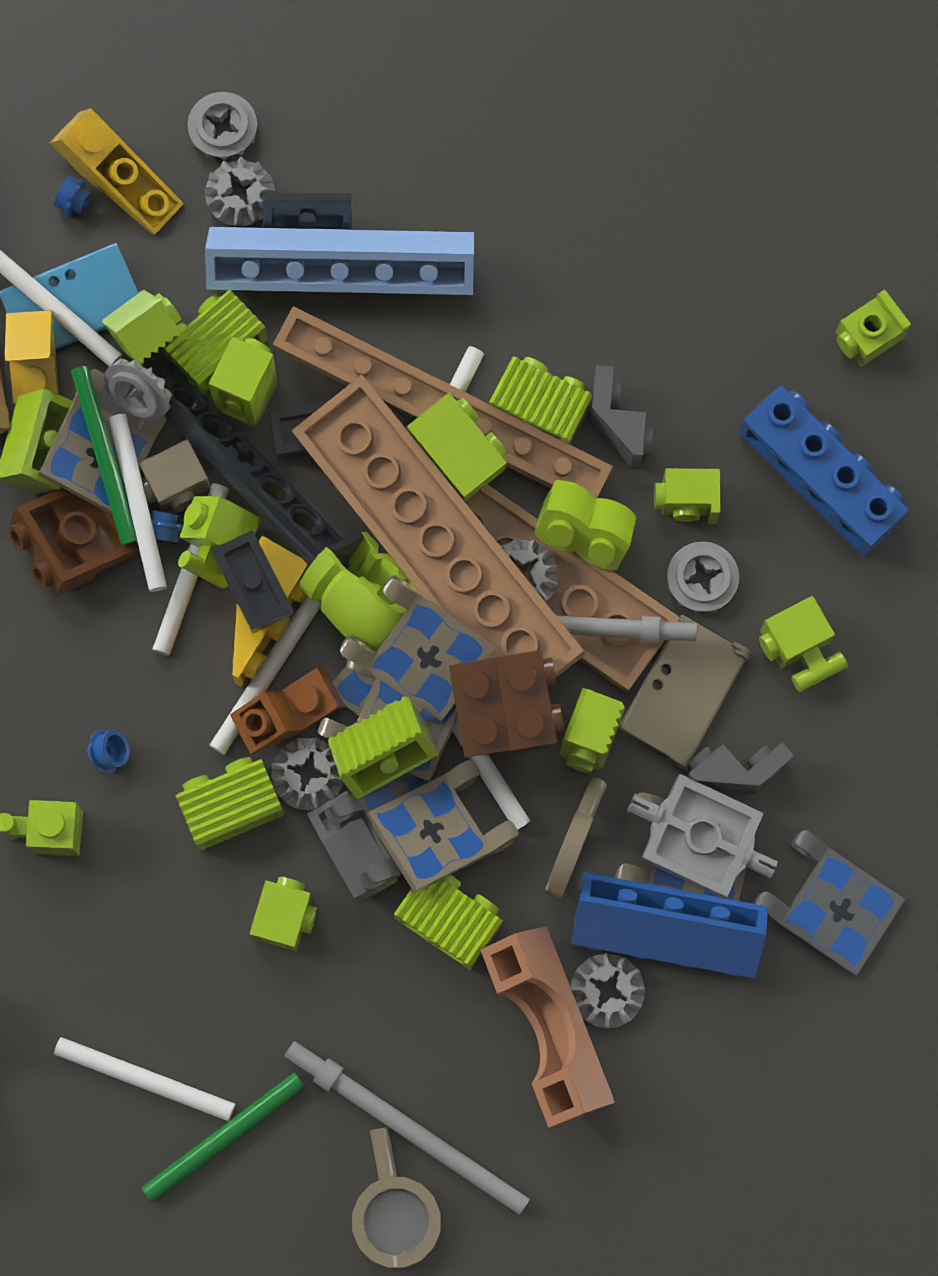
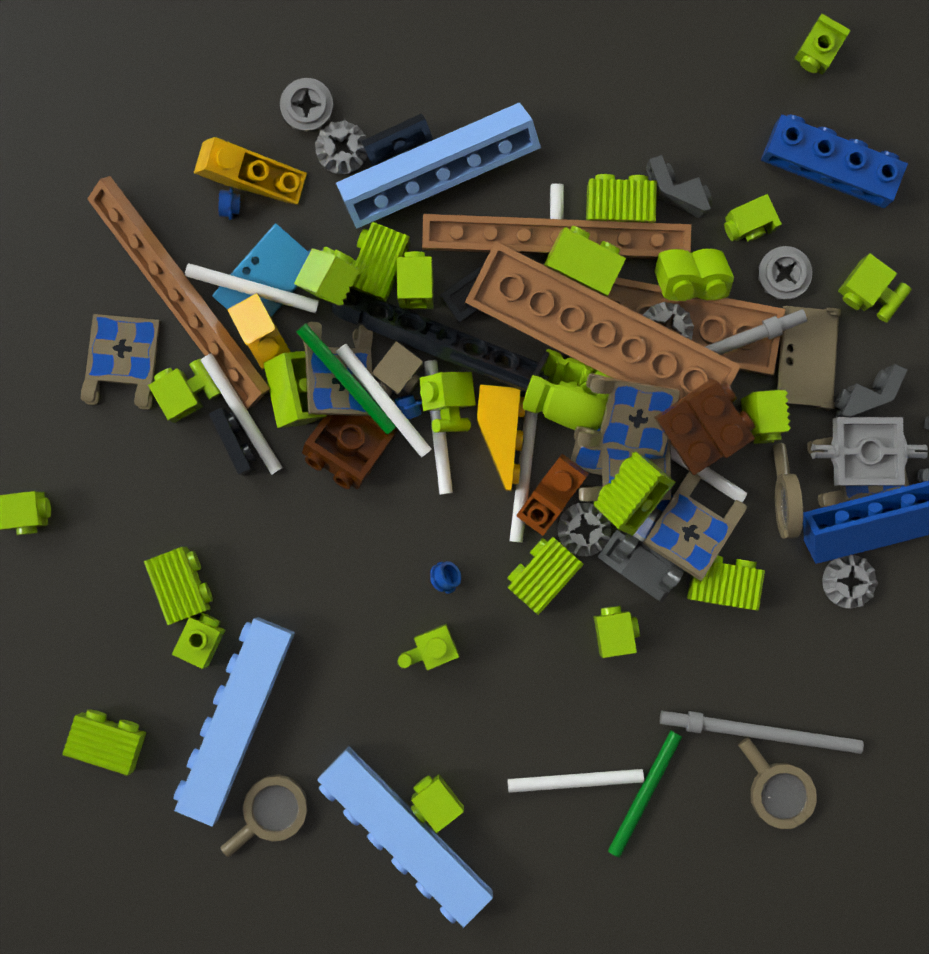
camera: 20 degrees left, 10 degrees up
(148, 396) = (347, 323): light grey gear -> none
(252, 581) = (491, 420): black plate -> none
(569, 1071) = (854, 649): nougat arch -> none

